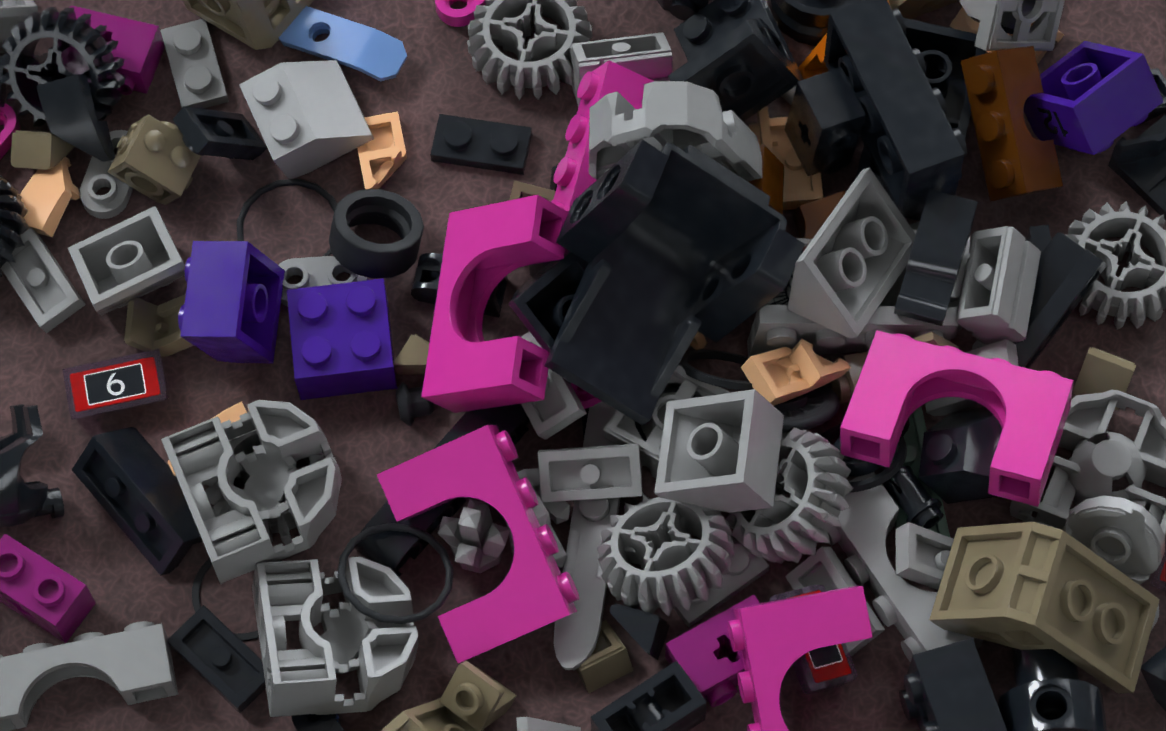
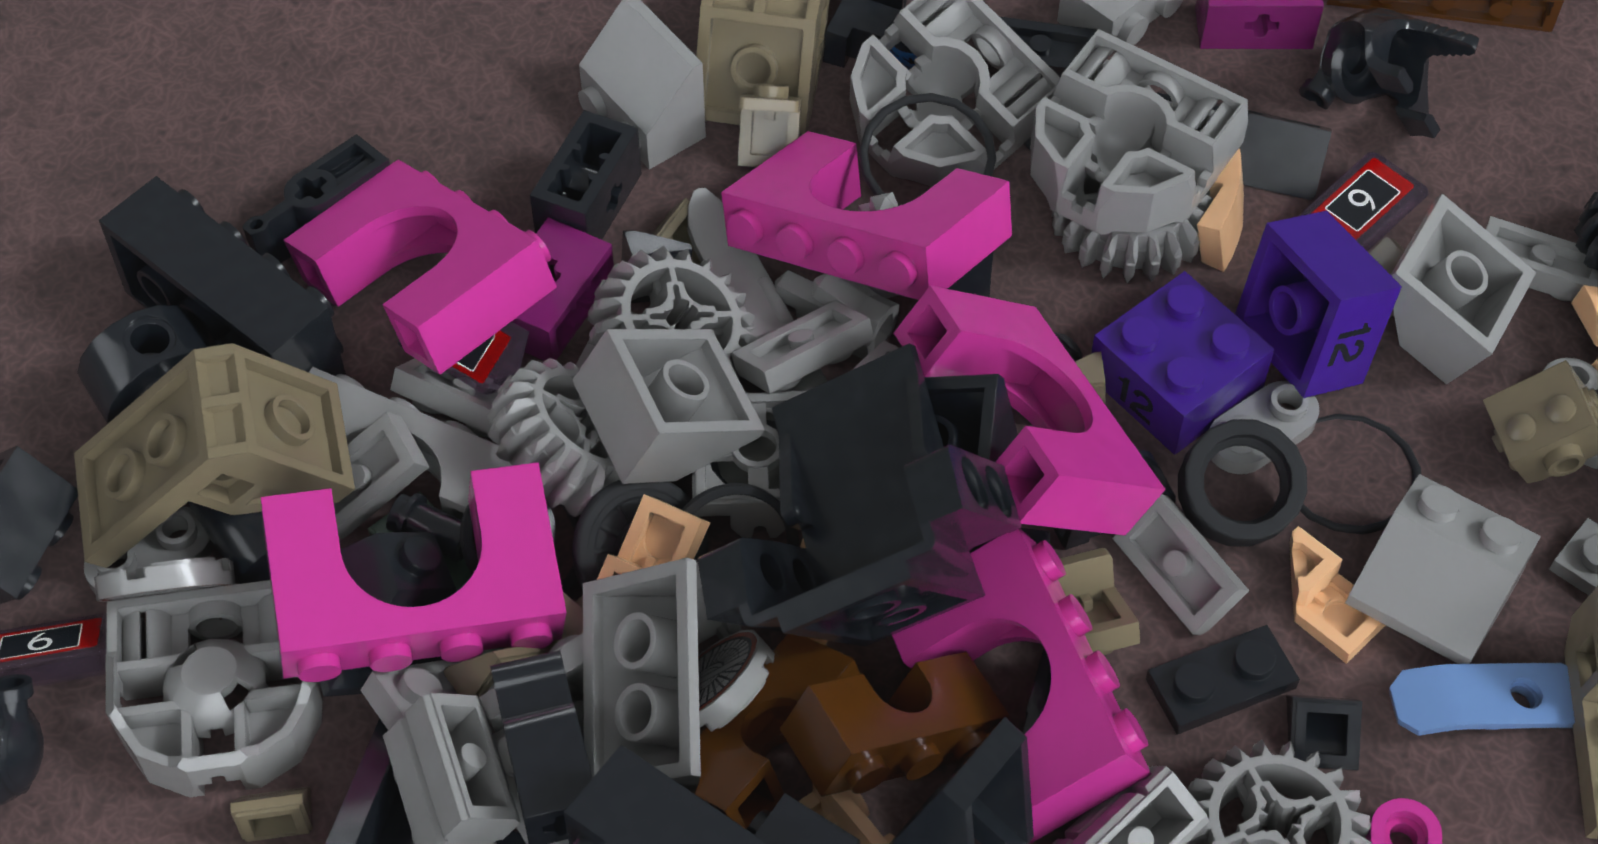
camera: 145 degrees right, 10 degrees down
(218, 134) = (1515, 468): black plate -> none
(445, 86) = (1325, 726): none -> black slope
(447, 192) = (1182, 566): none -> light grey plate
(676, 115) = (957, 646): light grey connector -> none

